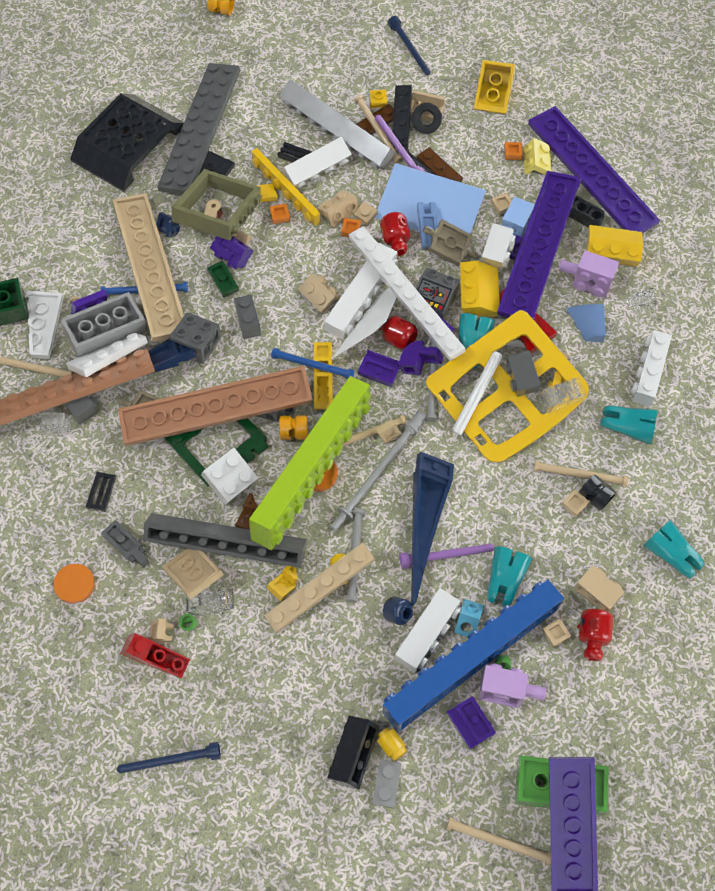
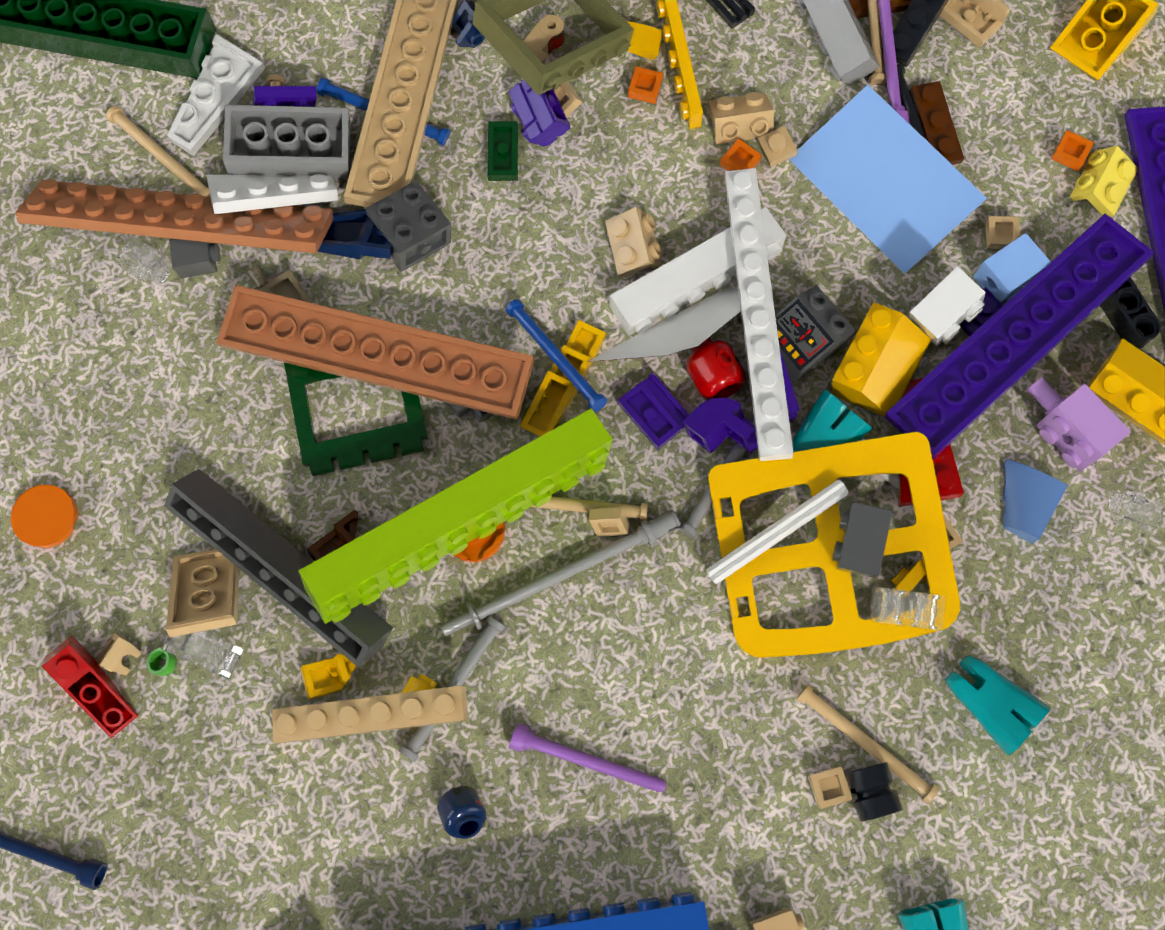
camera: 30 degrees right, 10 degrees up
(97, 506) = (162, 404): black tile -> none
(125, 543) = (142, 494): dark grey hinge -> none
(229, 476) = (336, 471): white brick -> none
(247, 316) = (503, 229): dark grey brick -> none
(293, 427) = (470, 440): light orange wheel -> none
(317, 162) = (746, 27): white brick -> none
(395, 231) = (804, 200): red piece -> none
(416, 118) = (949, 18): black tyre -> none
(427, 631) = (488, 867): white brick -> none
(428, 219) = (861, 214): medium blue plate -> none
(430, 489) = (616, 650): dark blue plate -> none
(450, 242) = (879, 259): dark tan plate -> none
(471, 614) = (565, 878): medium azure bracket -> none
(507, 574) = (652, 849): teal piece -> none
(651, 369) = (1083, 632): white brick -> none

